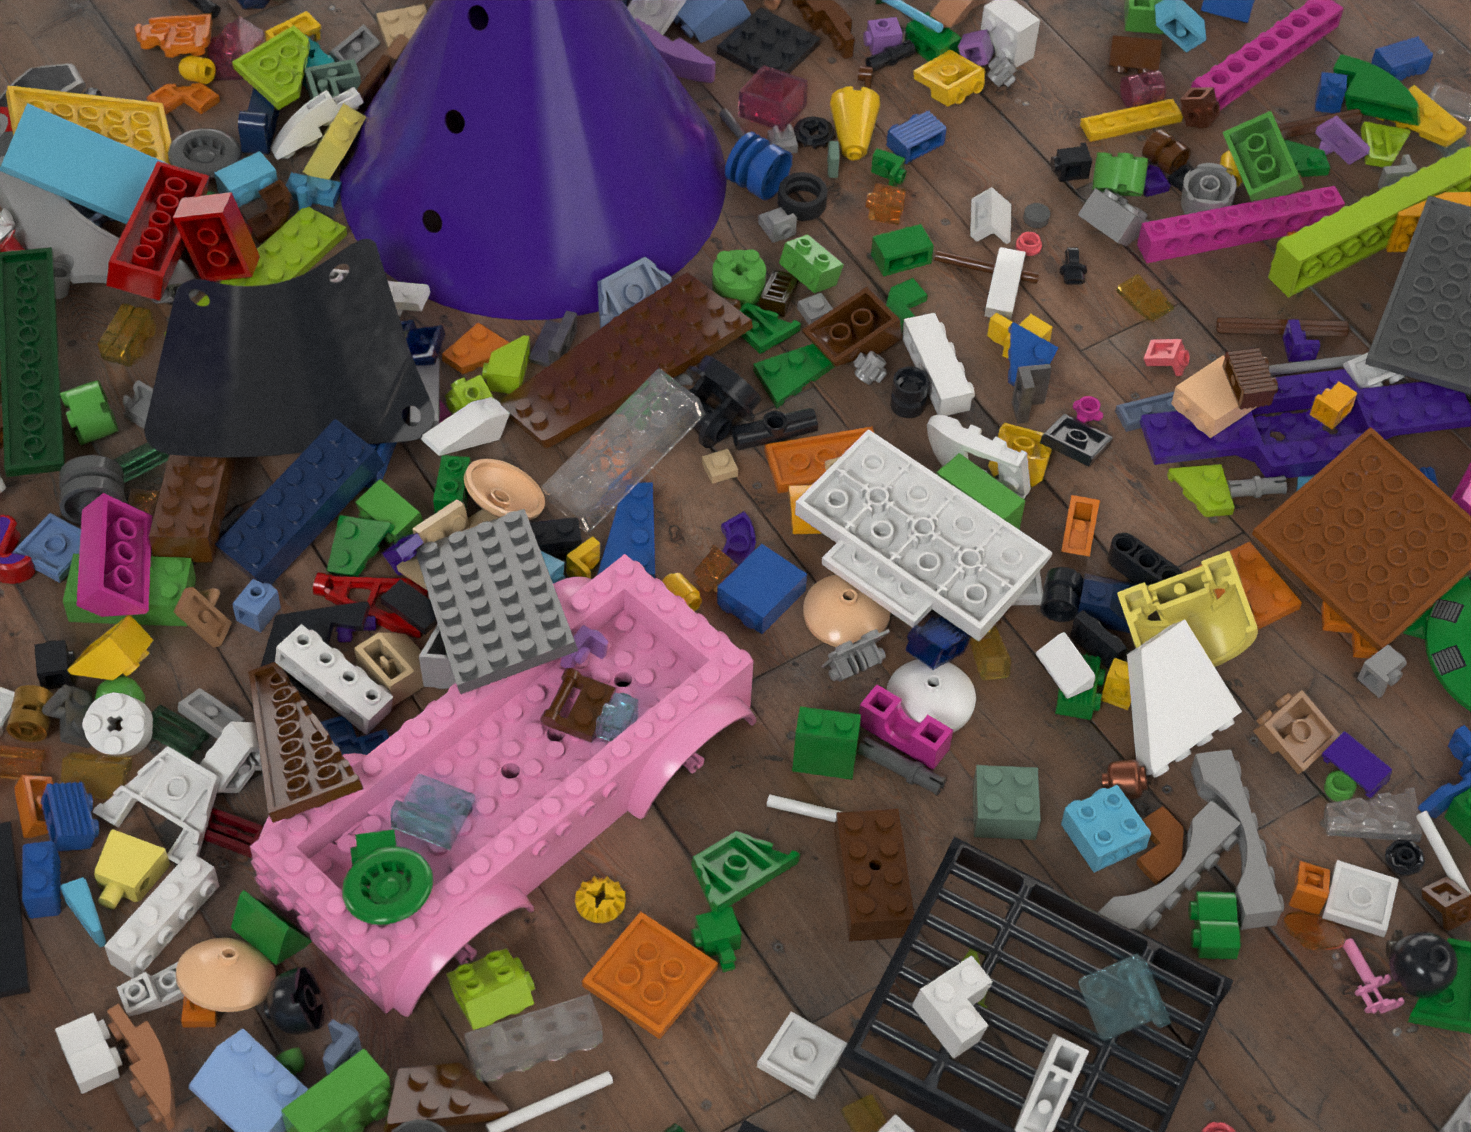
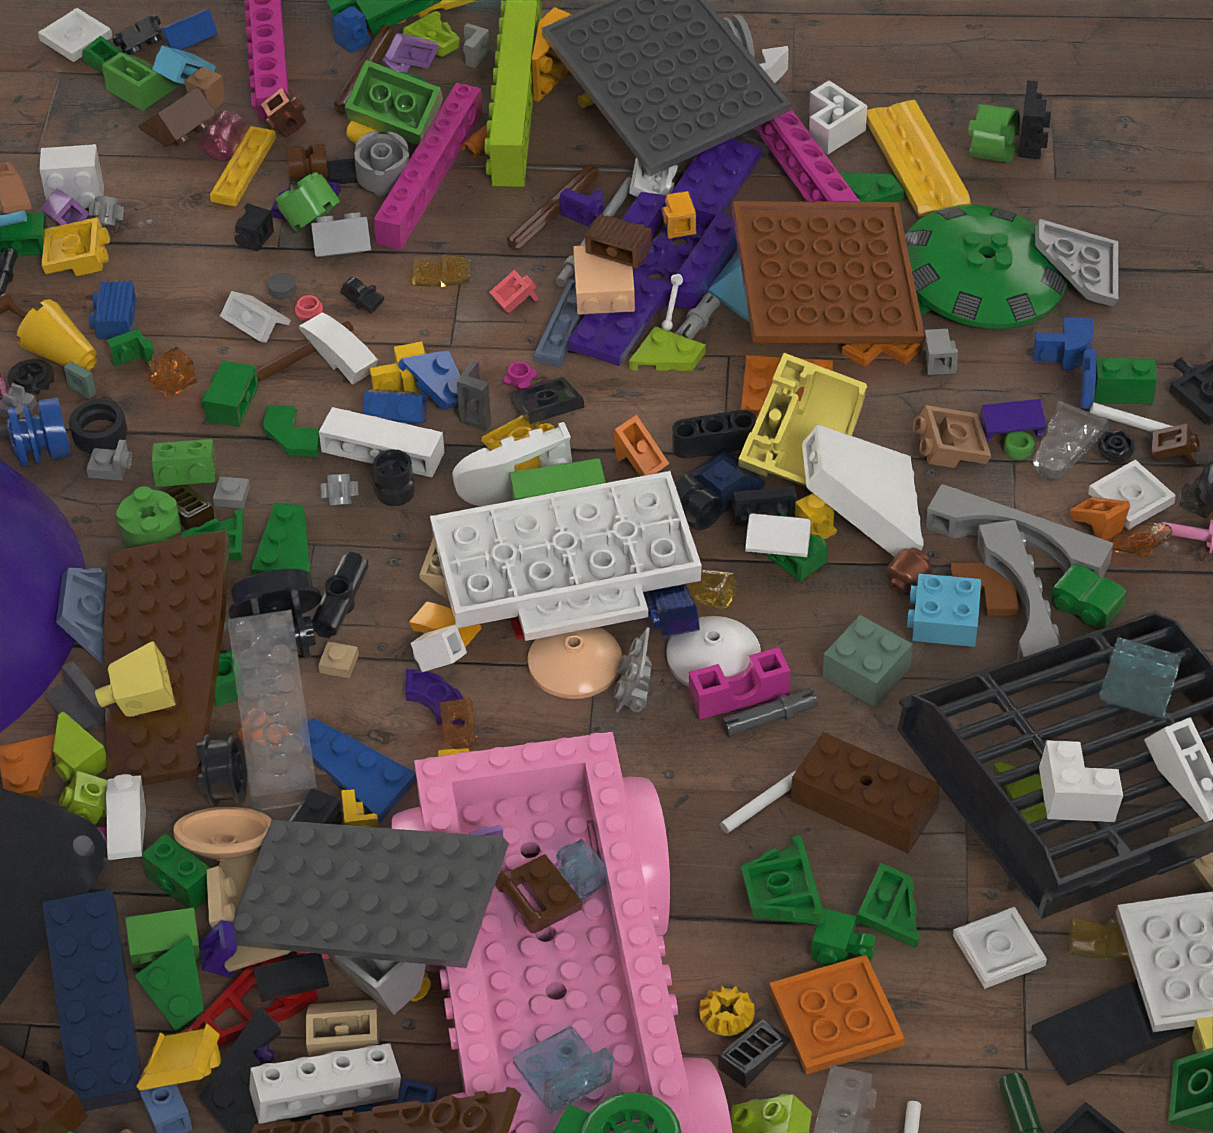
camera: 50 degrees left, 5 degrees down
(292, 584) = (181, 1058): none -> yellow slope
(549, 451) = (222, 768): none -> black wheel
(562, 947) = (745, 1074): none -> black slope
(581, 359) = (138, 682): none -> light yellow torso
(761, 589) = (504, 703): blue brick -> none
(771, 516) = (438, 648): none -> white brick
(782, 954) = (890, 906): none -> green wing
(803, 459) = (395, 587): orange tile -> none
(826, 742) = (711, 744): green slope -> none
(855, 327) = (290, 472): reddish brown slope -> none
(978, 351) = (396, 405): none -> blue brick
(1177, 50) = (210, 85): none -> medium nougat brick
(1269, 445) = (676, 280): none -> white hinge

